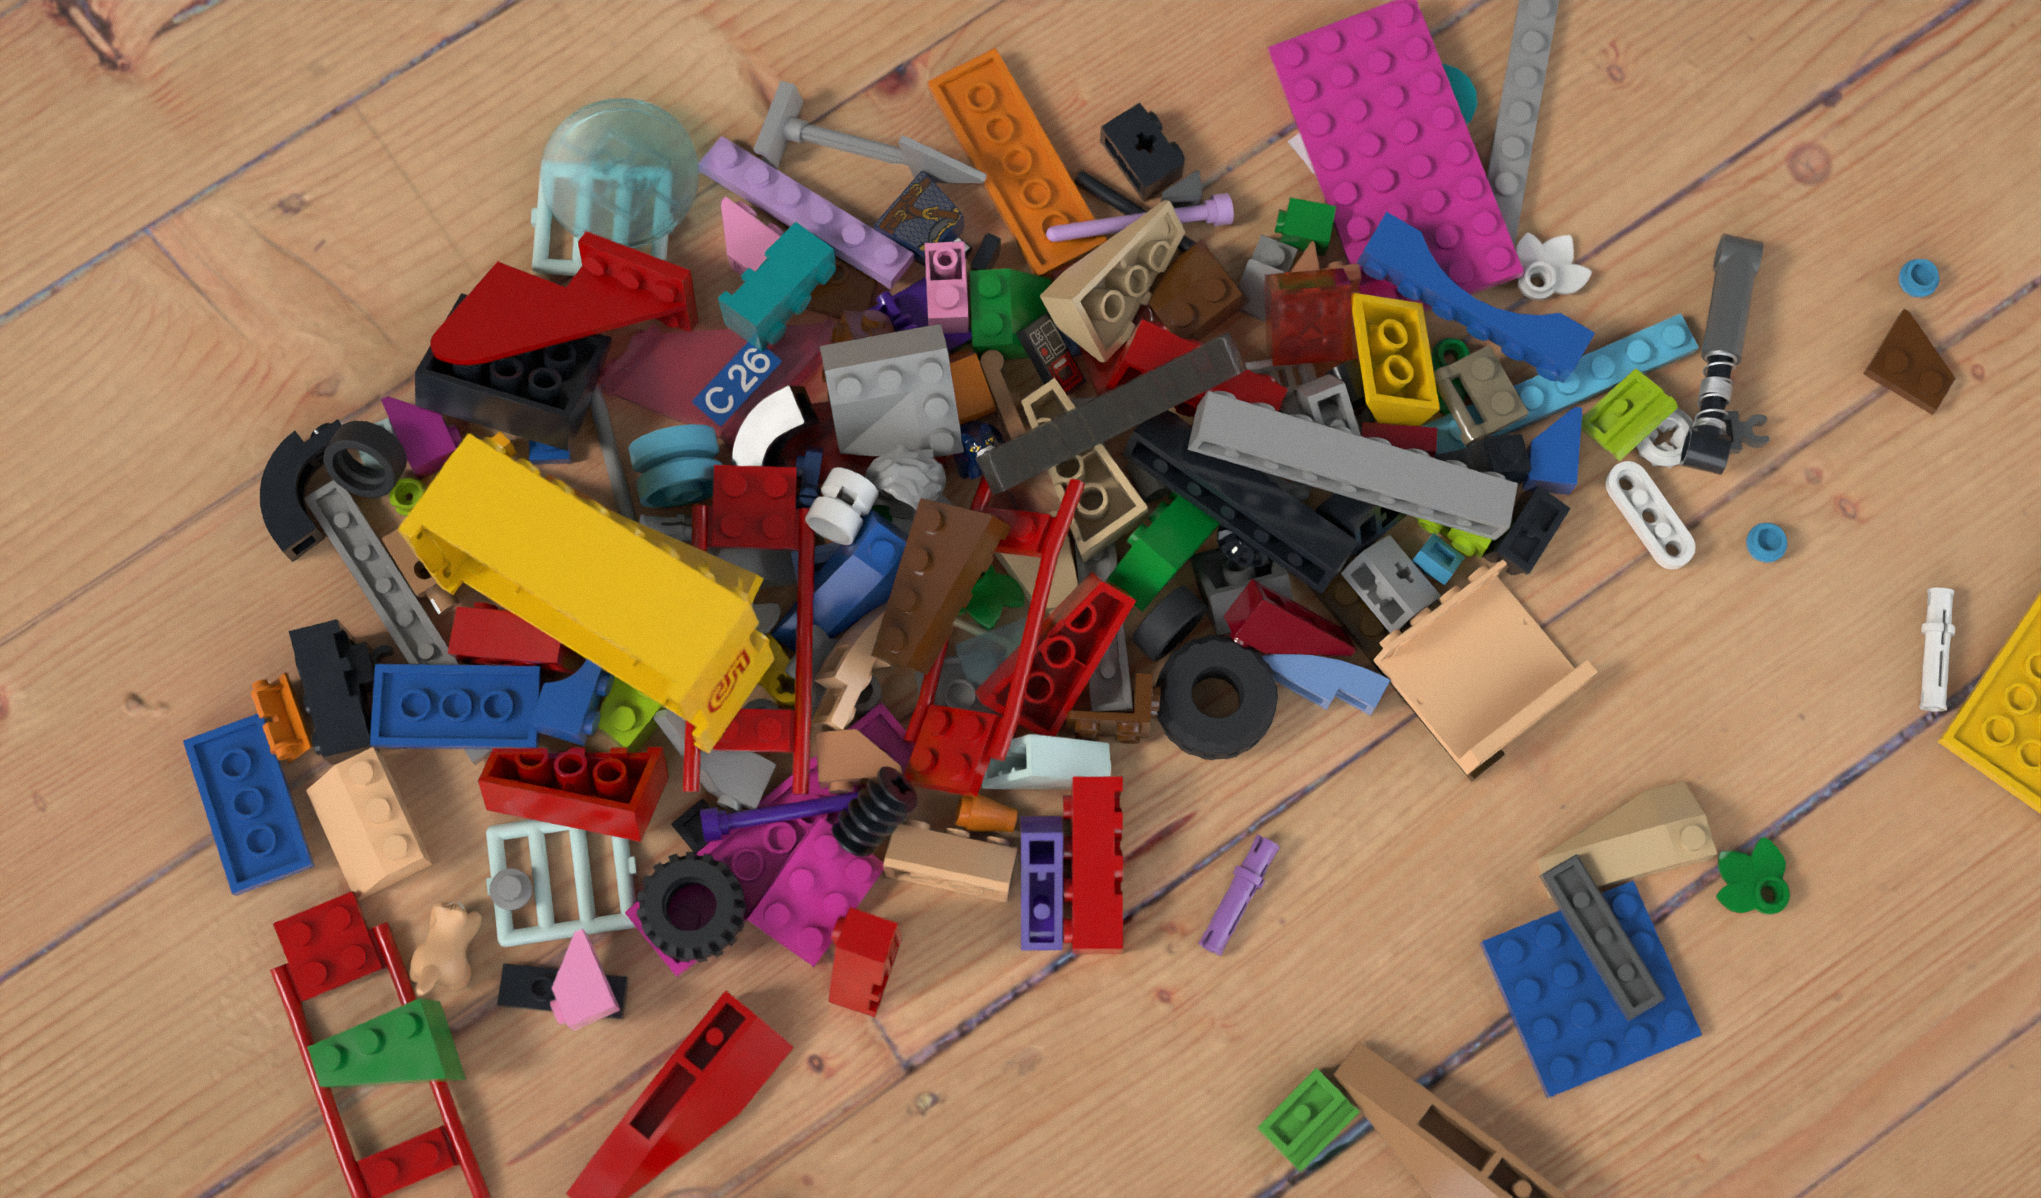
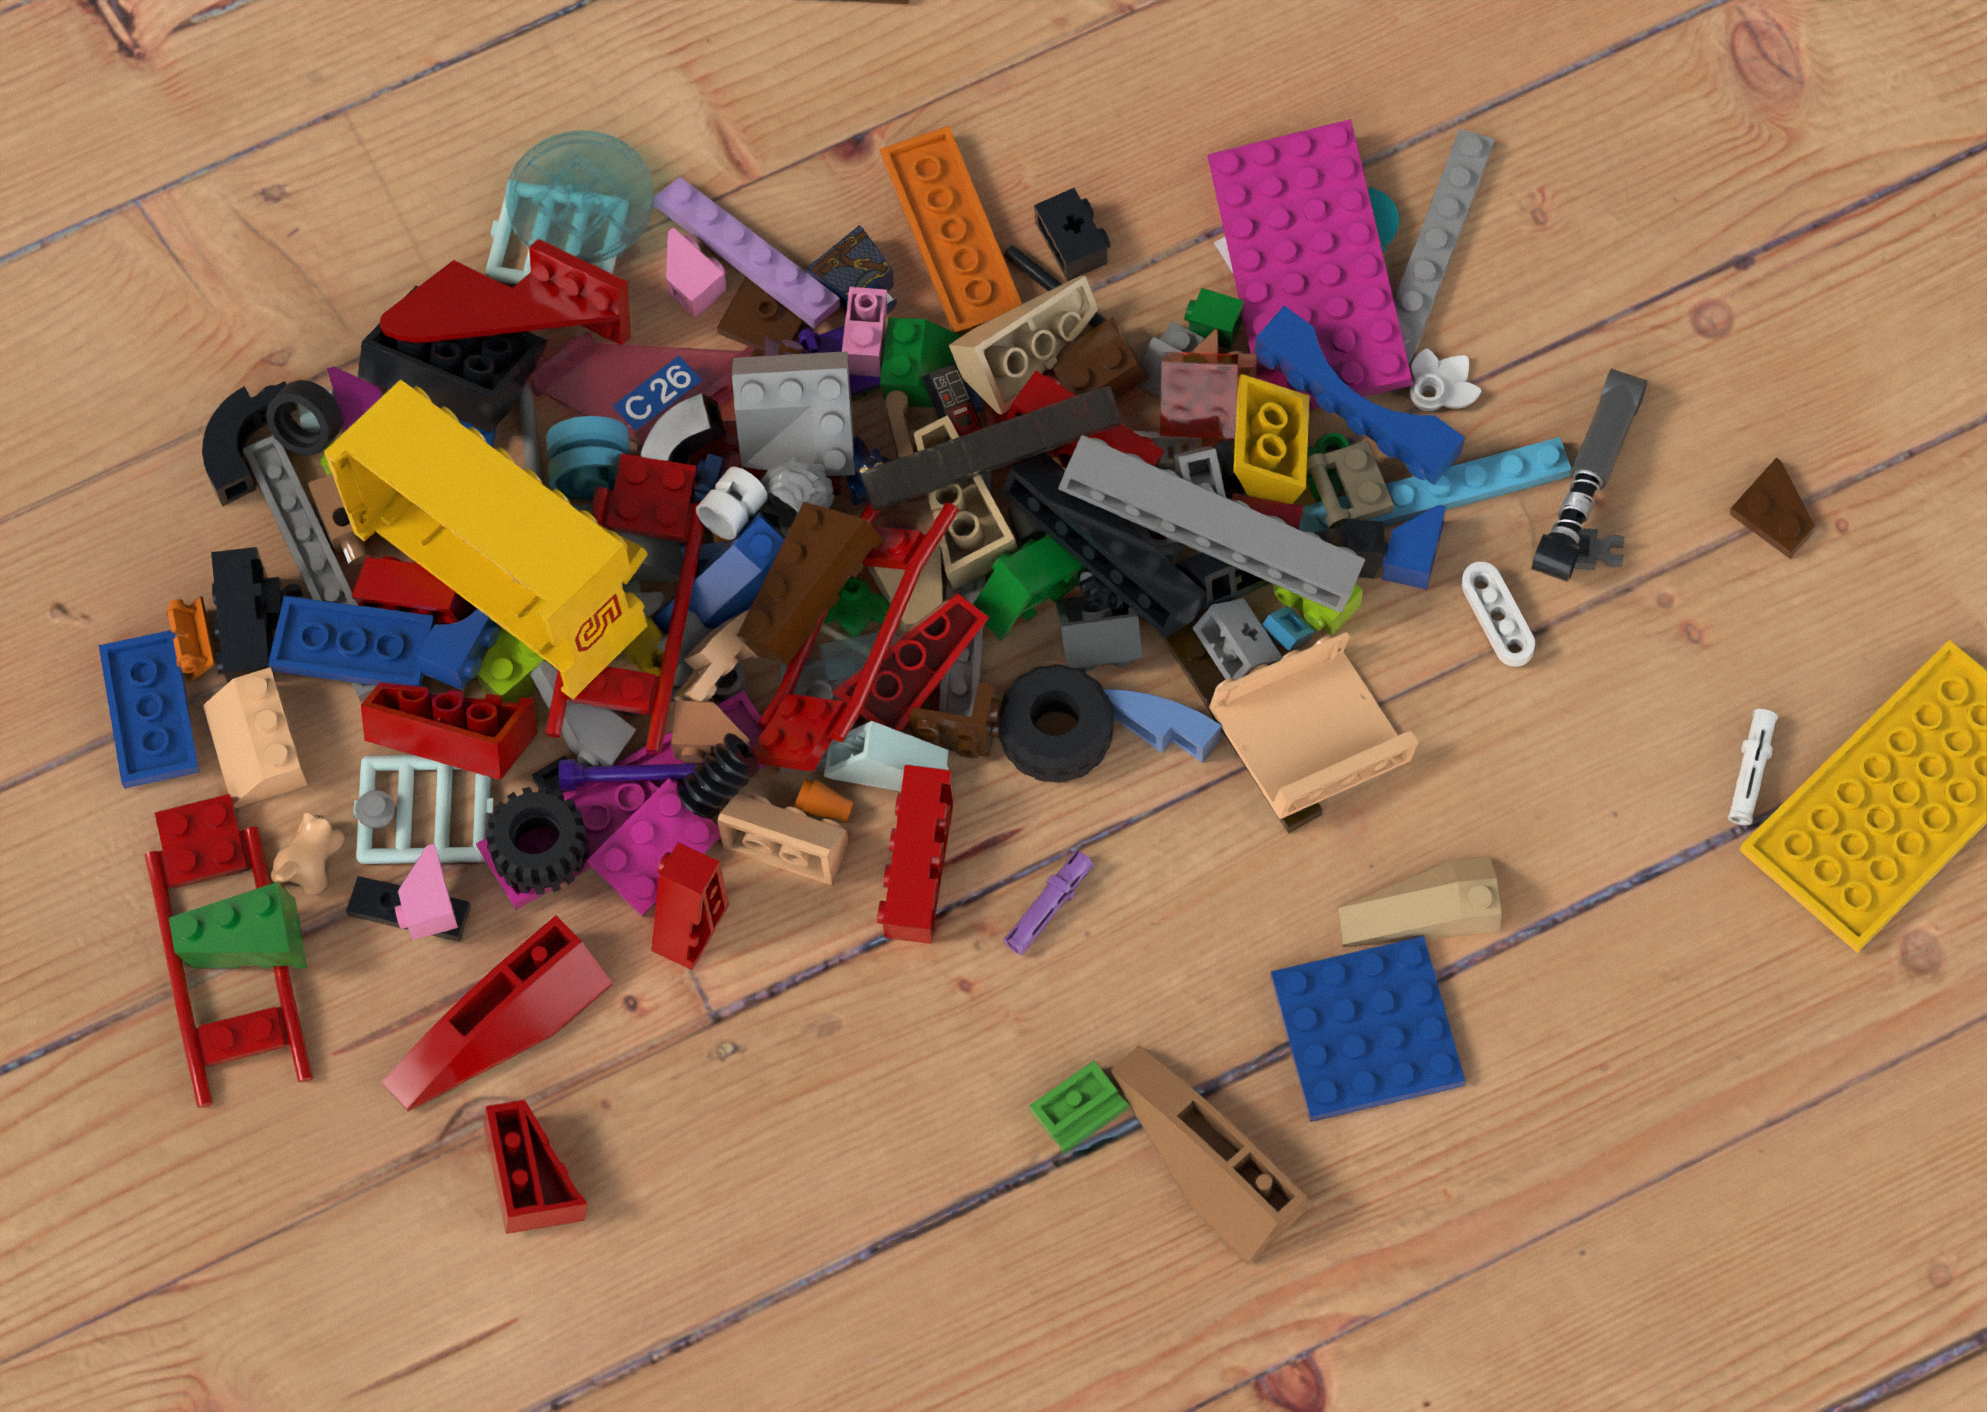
camera: 15 degrees right, 10 degrees down
(778, 287) = (707, 311): teal wedge -> none
(784, 125) = (740, 171): light grey piece -> none
(970, 387) = (870, 422): orange slope -> none
(987, 253) = (910, 305): black tile -> none
(1041, 883) = (864, 867): dark purple slope -> none
(1169, 623) = (1021, 648): black tyre -> none
(1185, 192) = (1104, 276): dark grey slope -> none
(1215, 210) = (1130, 294): lavender piece -> none
(1282, 626) = (1126, 664): dark red slope -> none
(1532, 527) = (1377, 611): black hinge -> none
(1602, 937) = (1382, 978): dark grey tile -> none
(1628, 414) = (1490, 519): lime plate -> none
(1664, 454) = (1507, 542): white gear -> none
(1749, 875) = (1536, 948): green plate -> none
(1766, 542) = (1606, 652): dark azure plate -> none
(1918, 278) = (1797, 432): dark azure plate -> none

